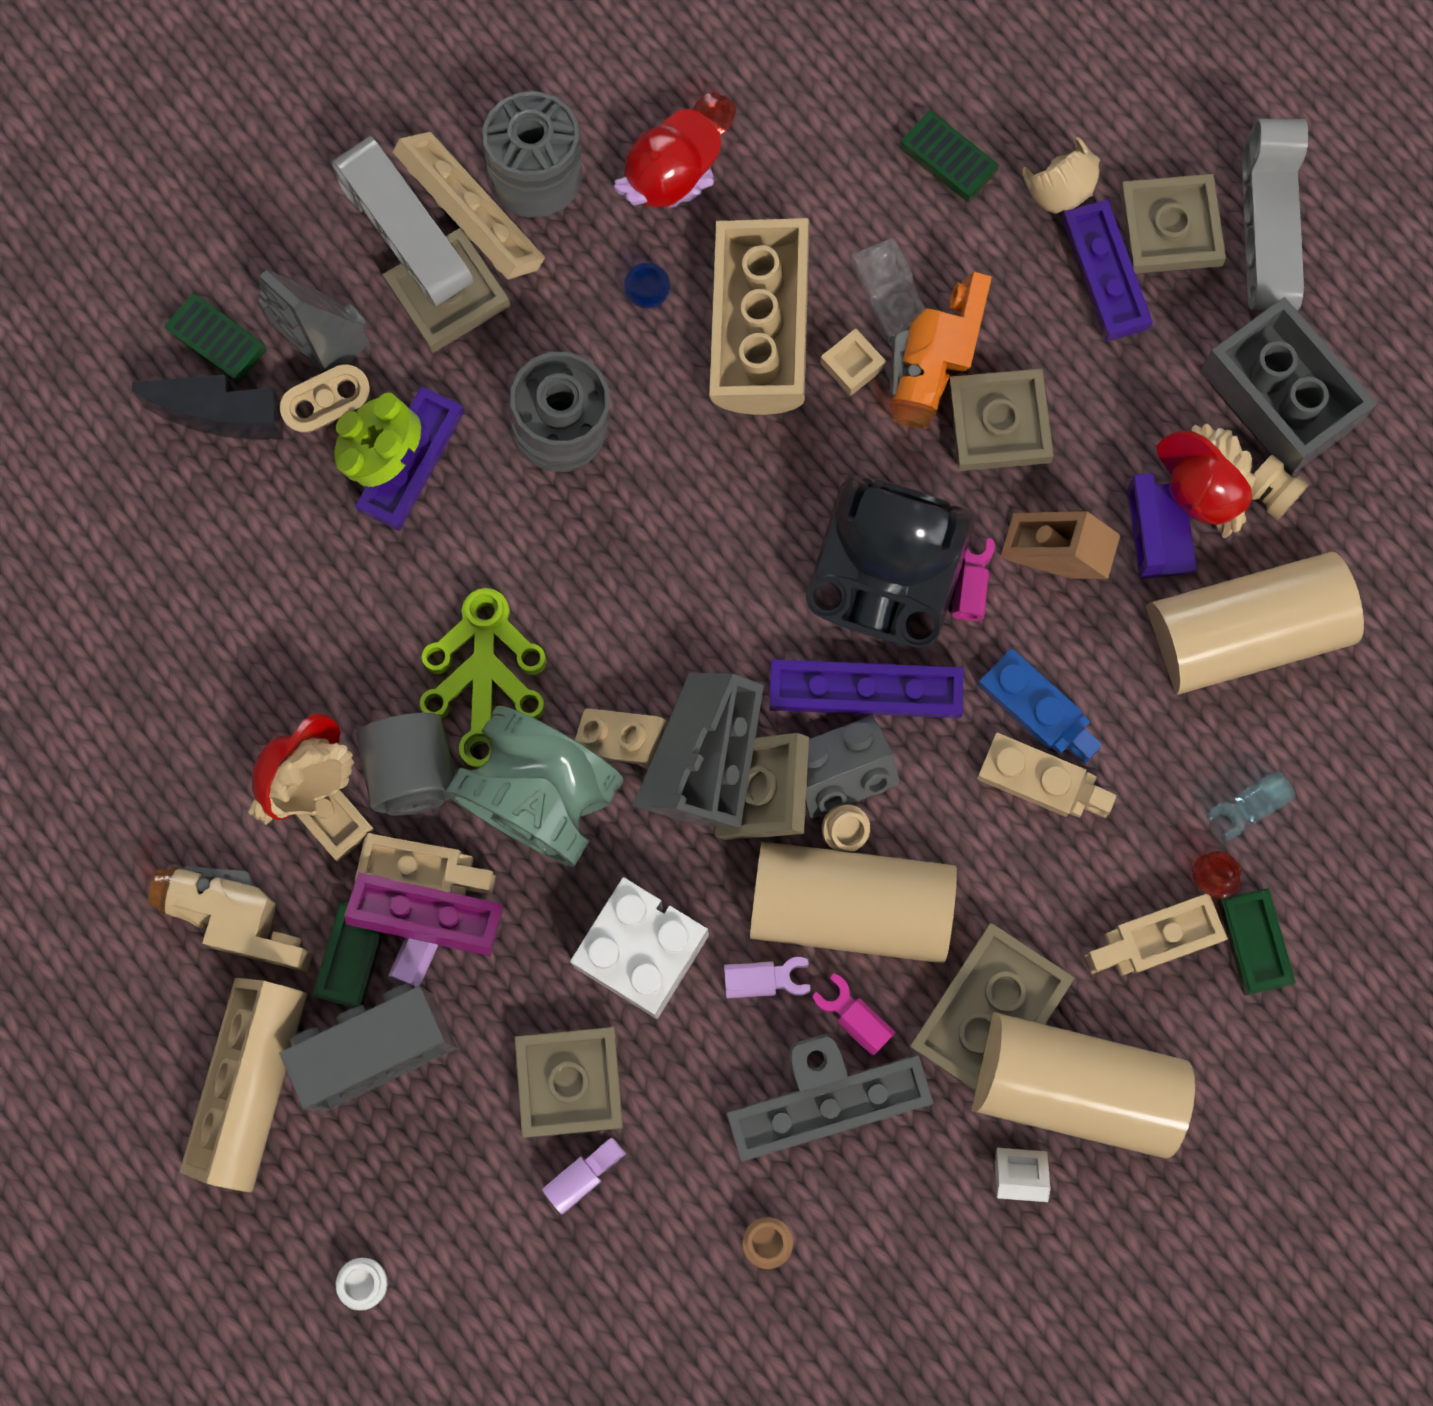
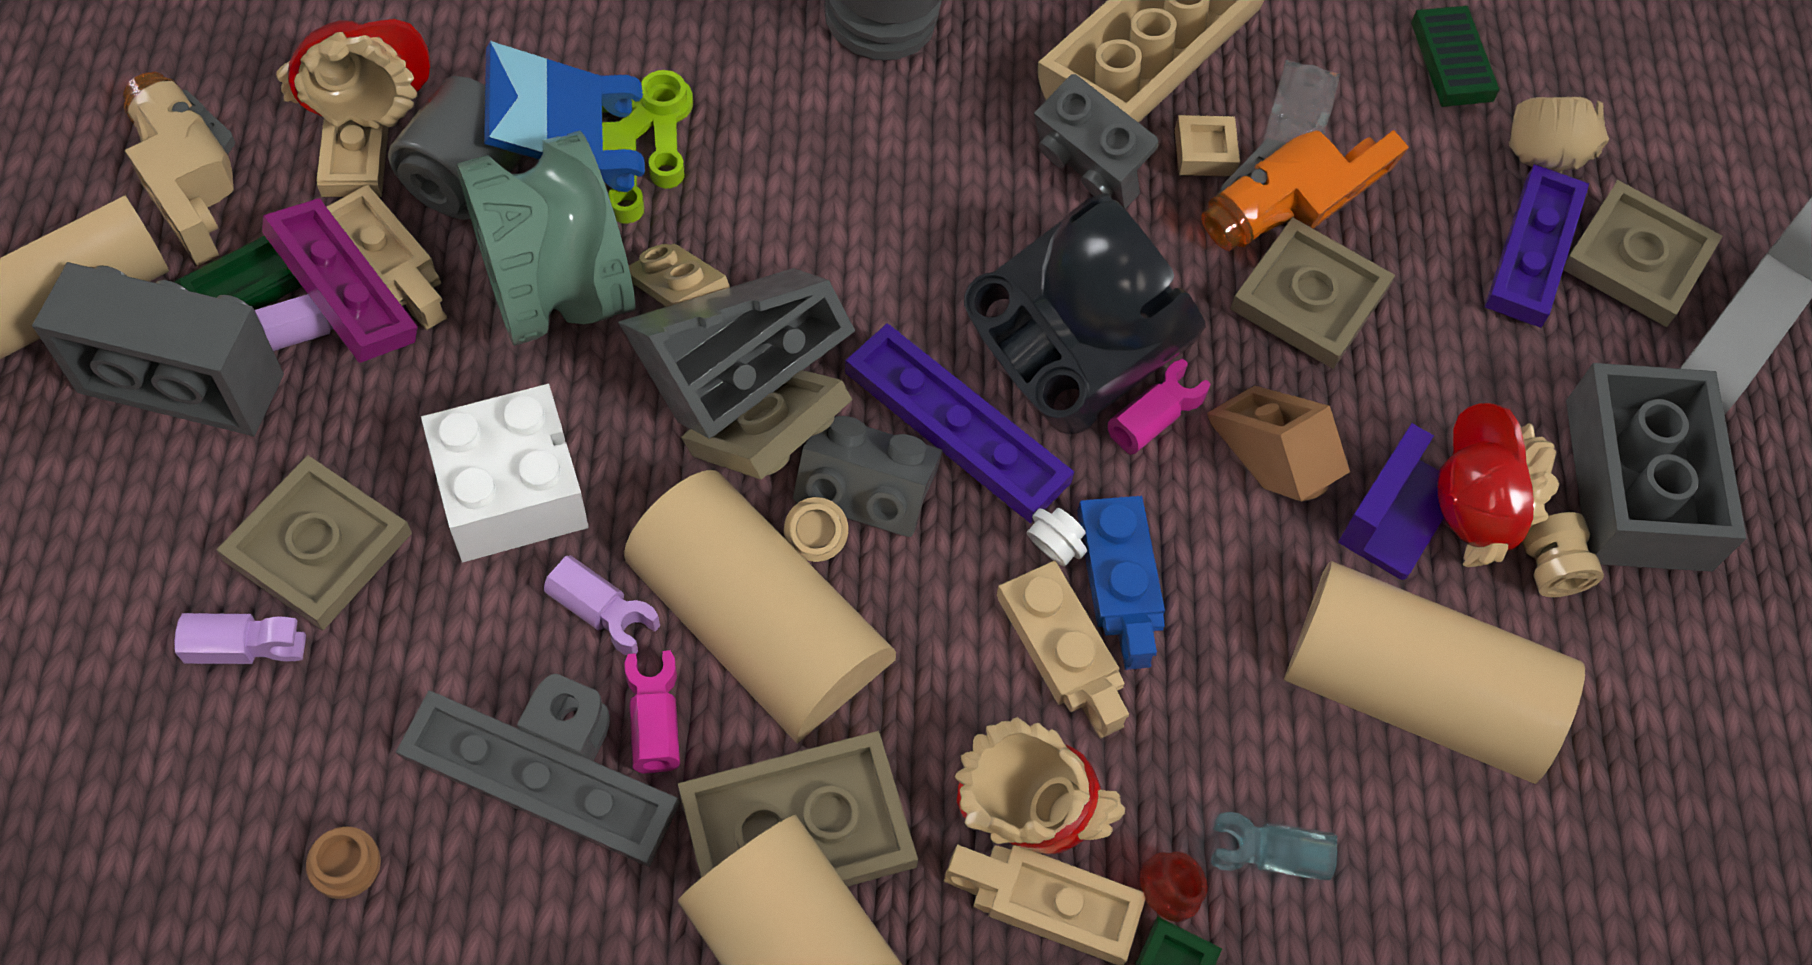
camera: 30 degrees right, 15 degrees down
(447, 694) = (545, 99): none -> blue flag
(791, 421) = (1095, 139): none -> dark grey bracket
(986, 715) = (1057, 535): none -> white plate
(1105, 889) = (1033, 790): none -> tan hair

